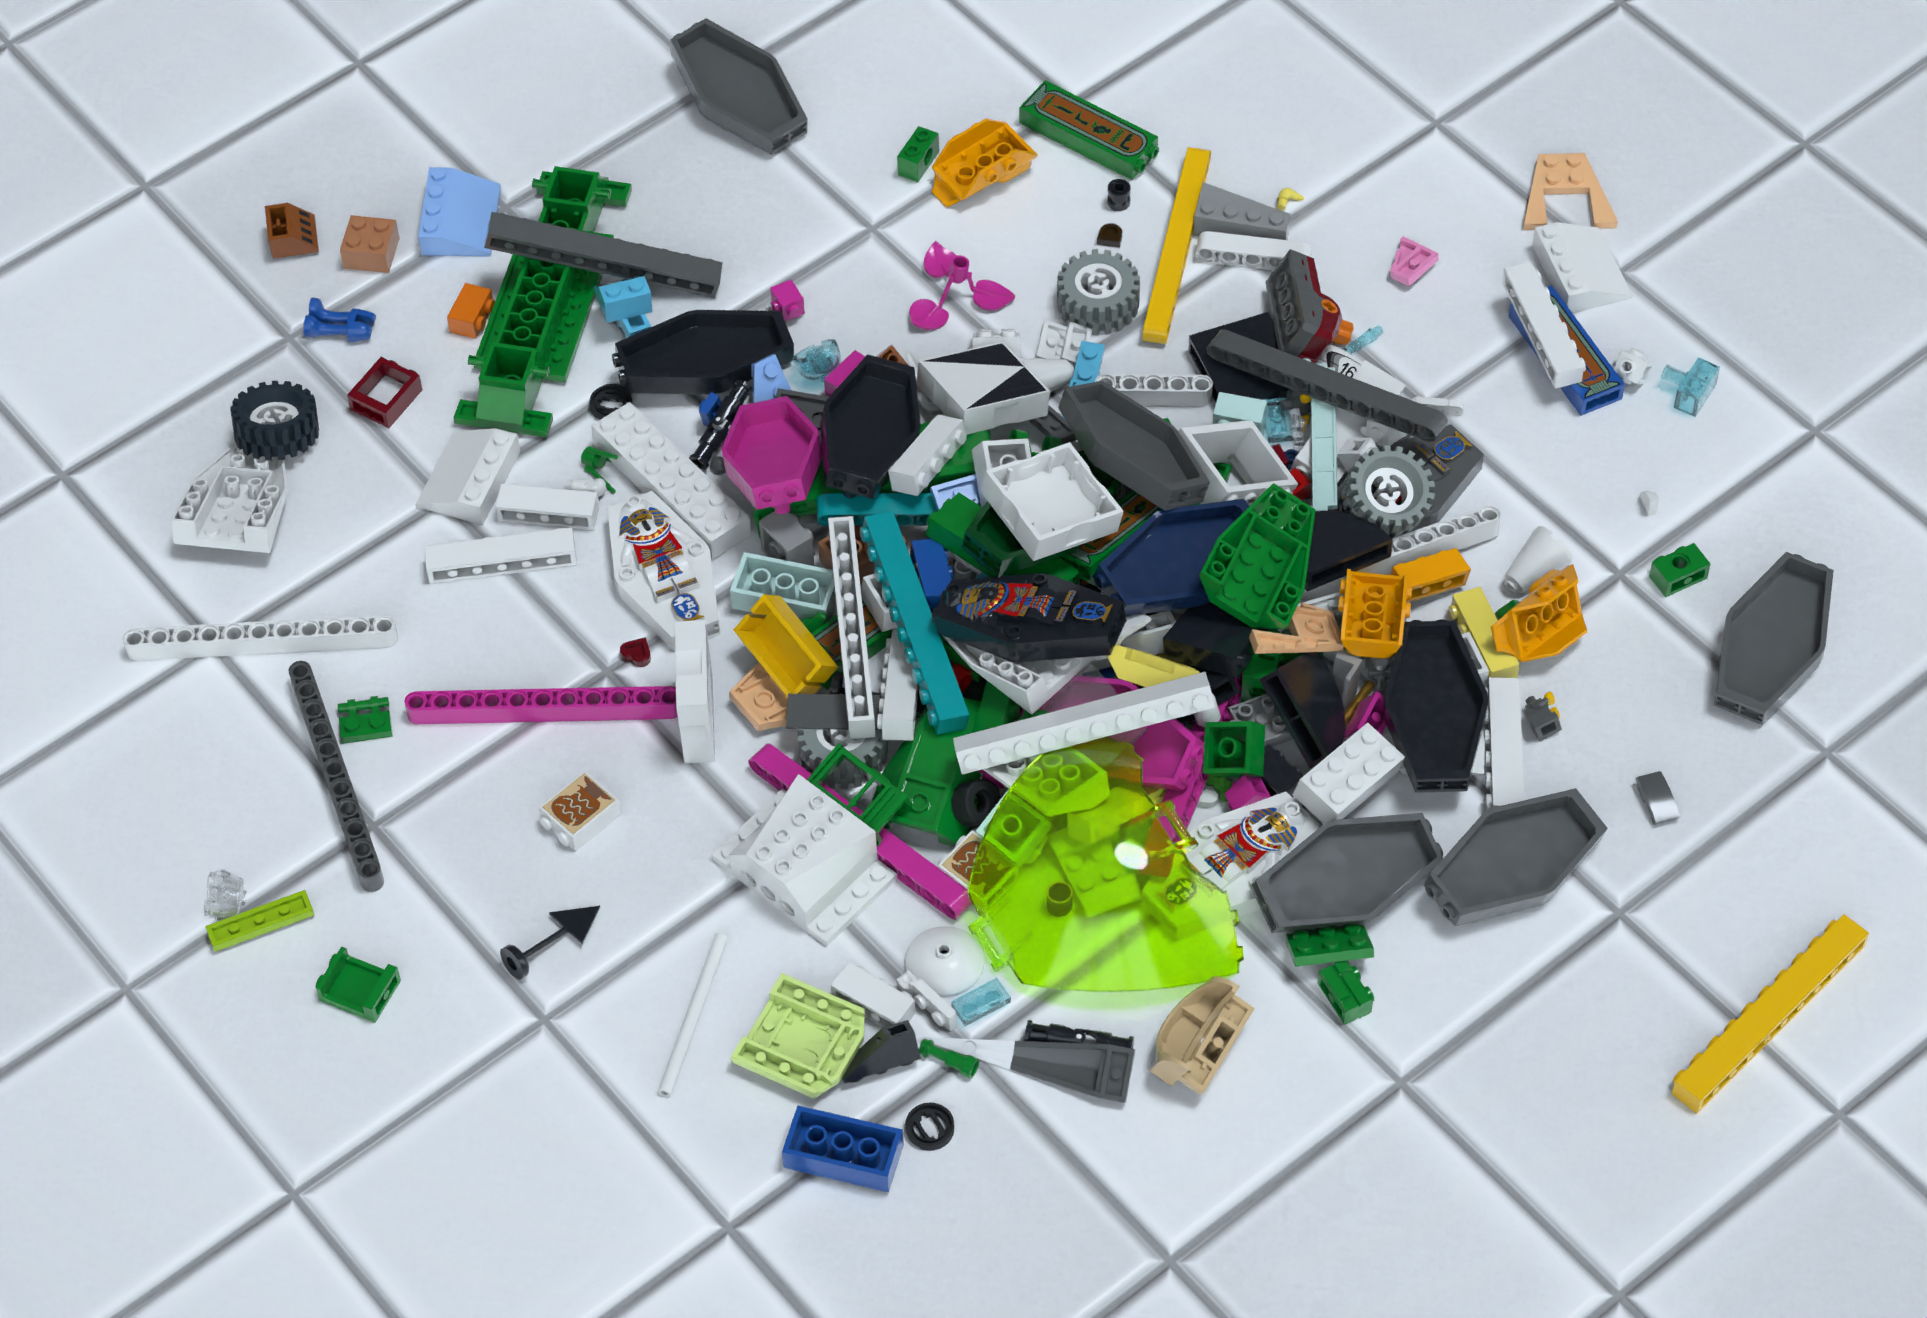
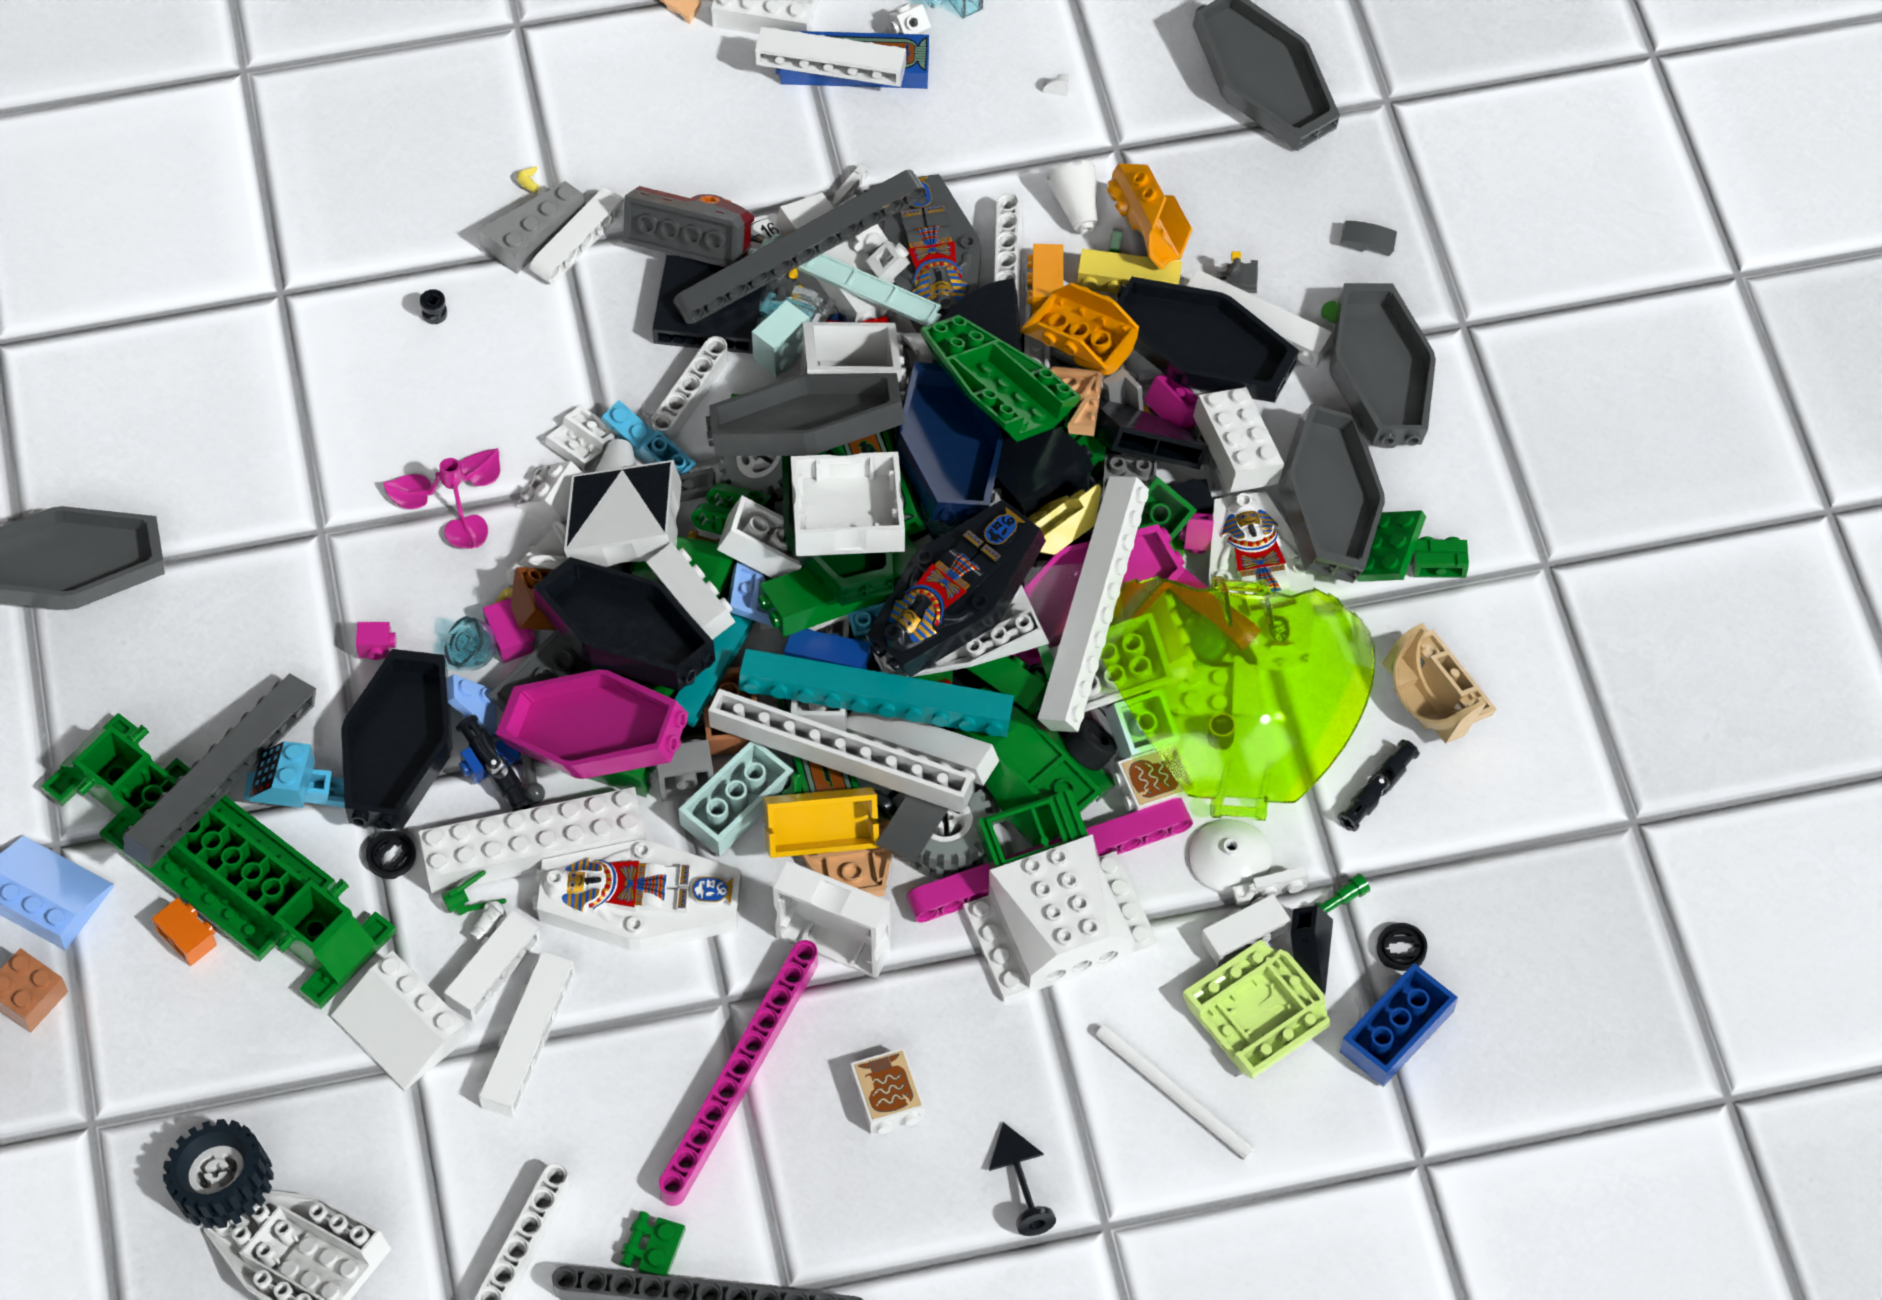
camera: 65 degrees left, 5 degrees up
(355, 323) = (118, 1048): blue piece -> none
(376, 410) = (250, 1079): dark red window -> none
(636, 652) = (720, 962): dark red tile -> none
(918, 154) = (262, 446): green brick -> none
(977, 159) = (318, 399): light orange slope -> none
(981, 1001) = (1294, 843): clear light blue plate -> none
(1083, 1067) = (1411, 794): dark grey plate -> none
(1088, 130) = (334, 293): brick -> none
(1099, 306) = (567, 377): light grey wheel -> none
(1110, 235) = (474, 338): dark brown tile -> none
(1176, 247) = (527, 290): yellow beam -> none
(1365, 338) = (736, 193): clear light blue animal -> none
(1389, 472) = (934, 252): light grey wheel -> none
(1411, 261) = (672, 122): bright pink wing -> none
(1679, 569) = (1146, 101): green brick -> none
(1769, 1013) = (1625, 269): yellow brick -> none

